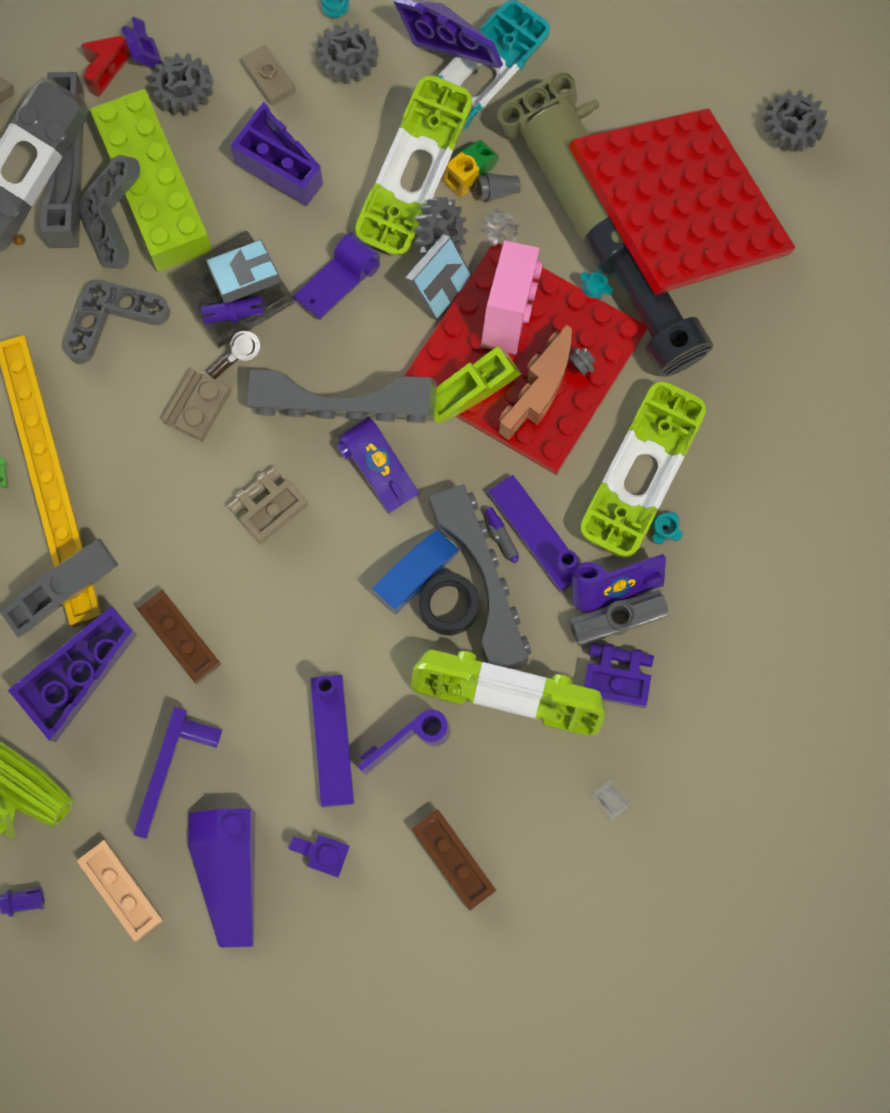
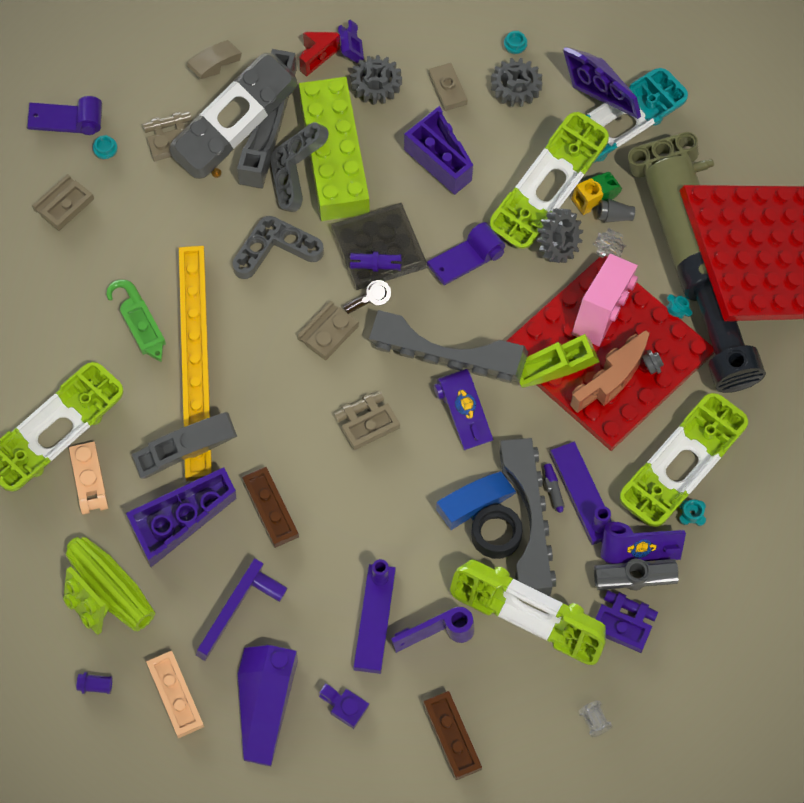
camera: 15 degrees right, 10 degrees down
(243, 271) = (391, 233): tile -> none
(439, 277) = (550, 271): tile -> none

